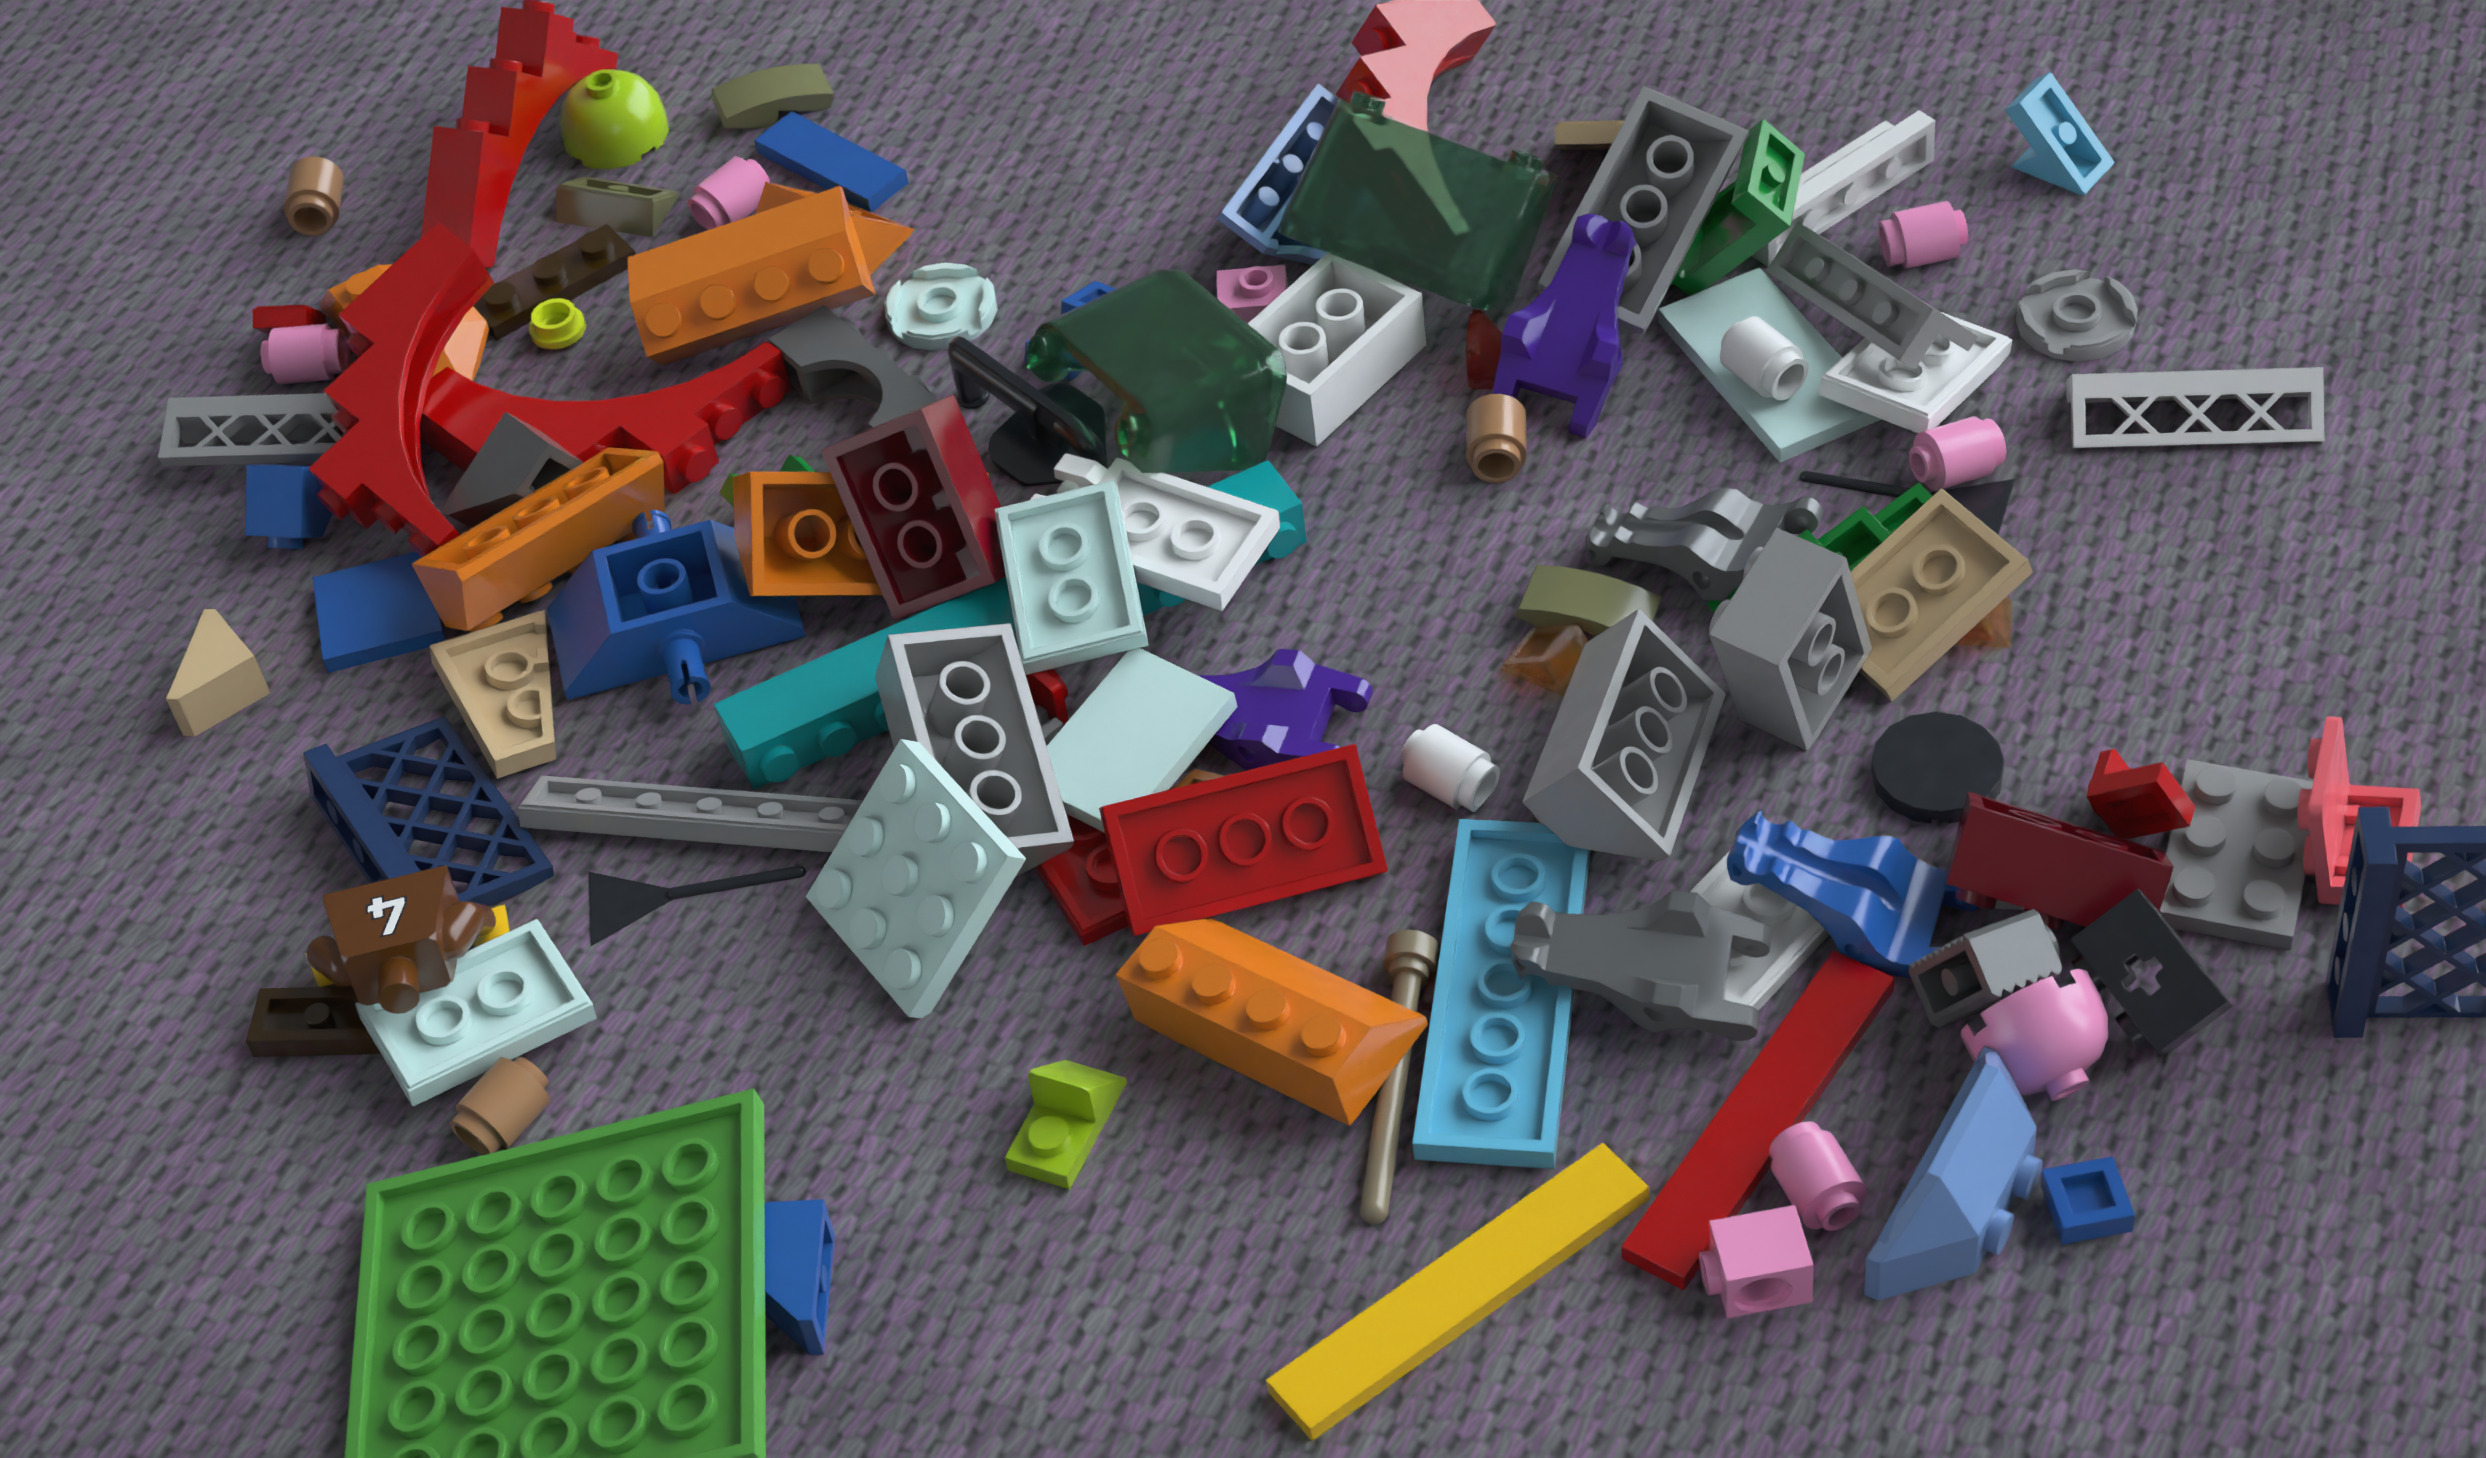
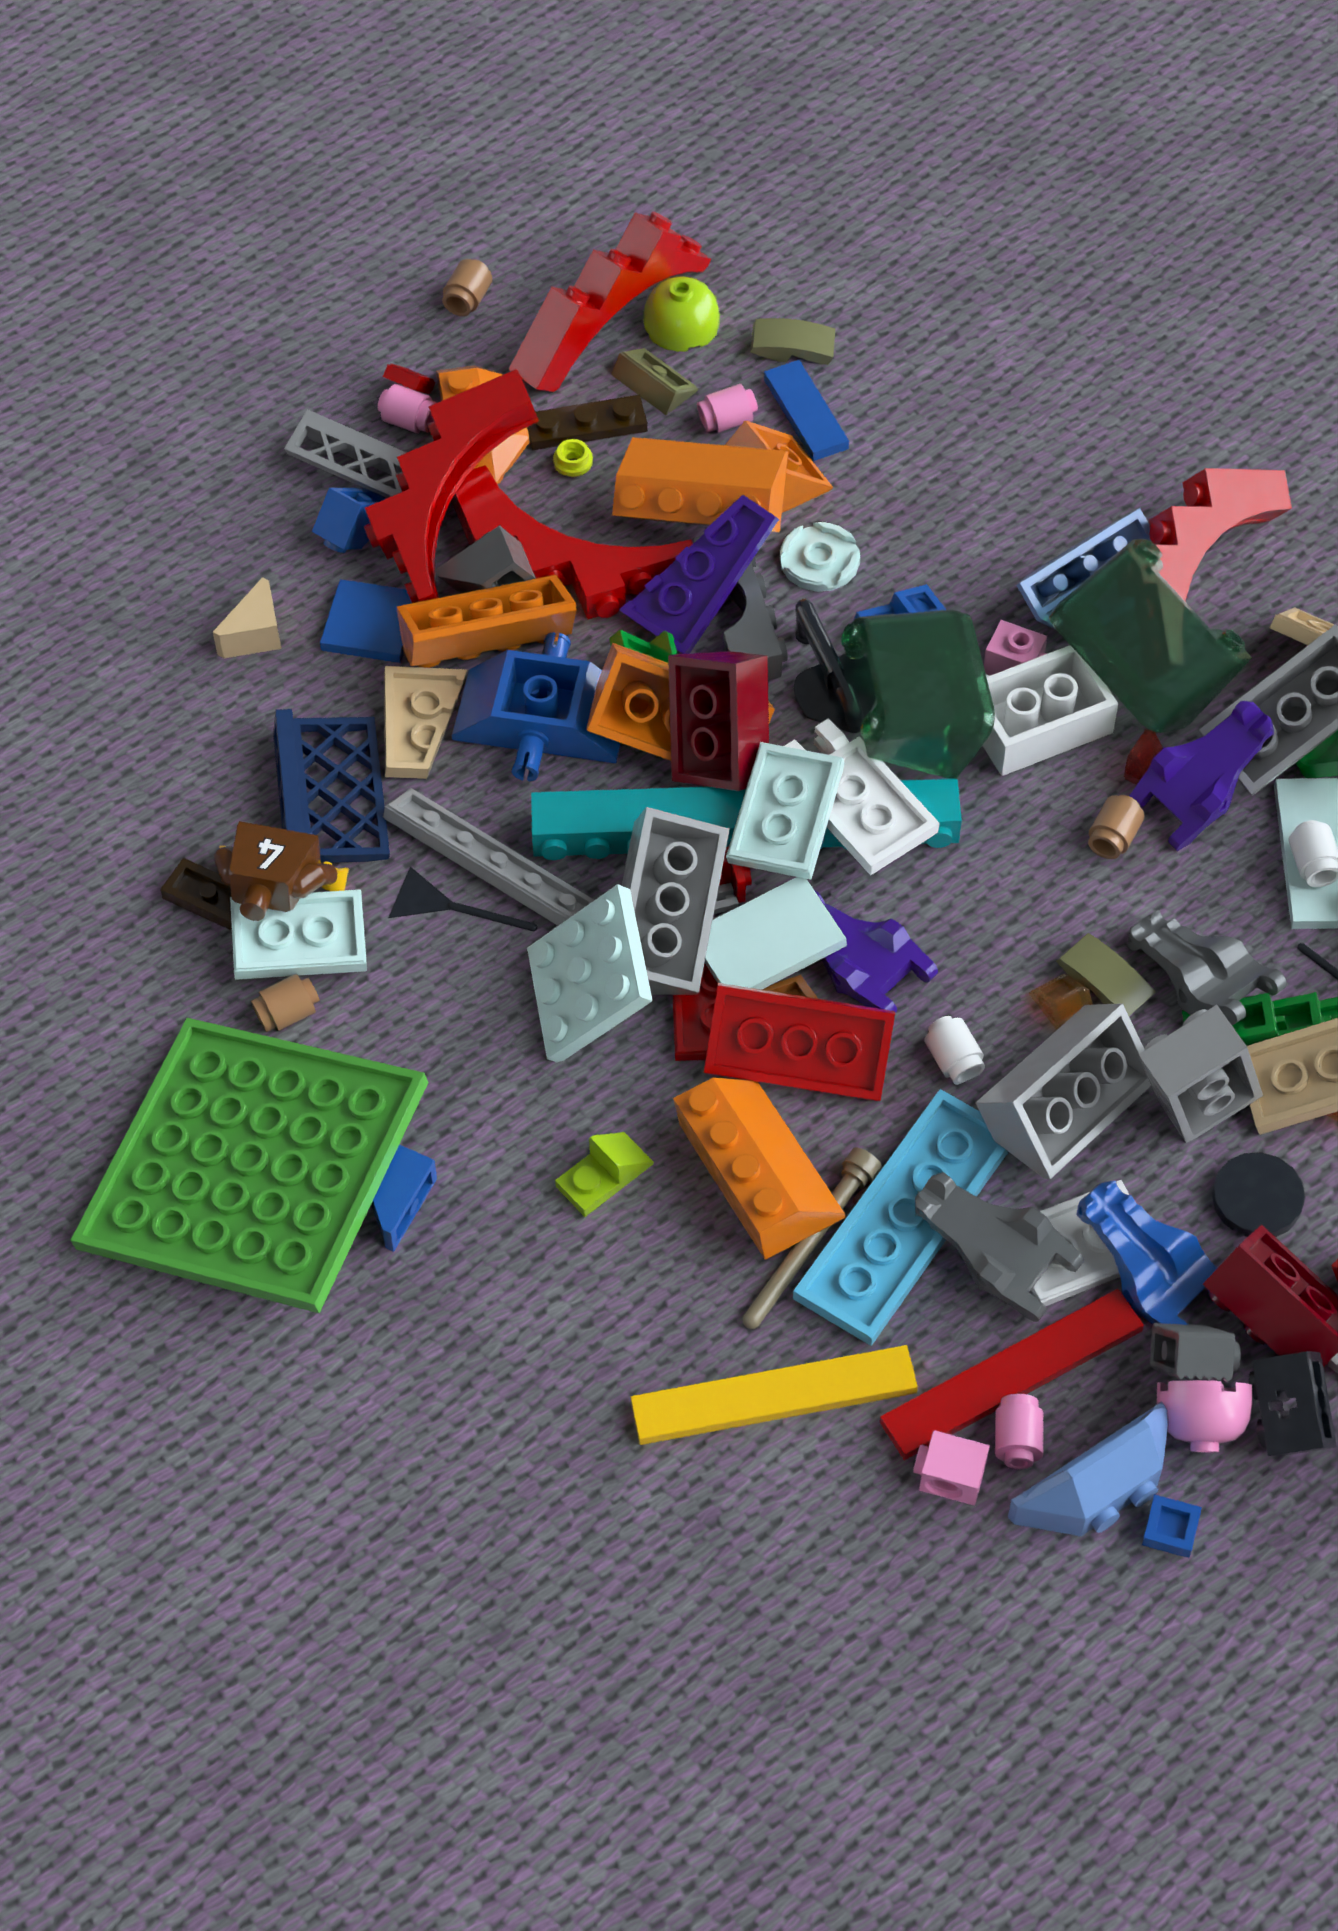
camera: 20 degrees right, 10 degrees up
(806, 370) = (702, 576): none -> dark purple wing

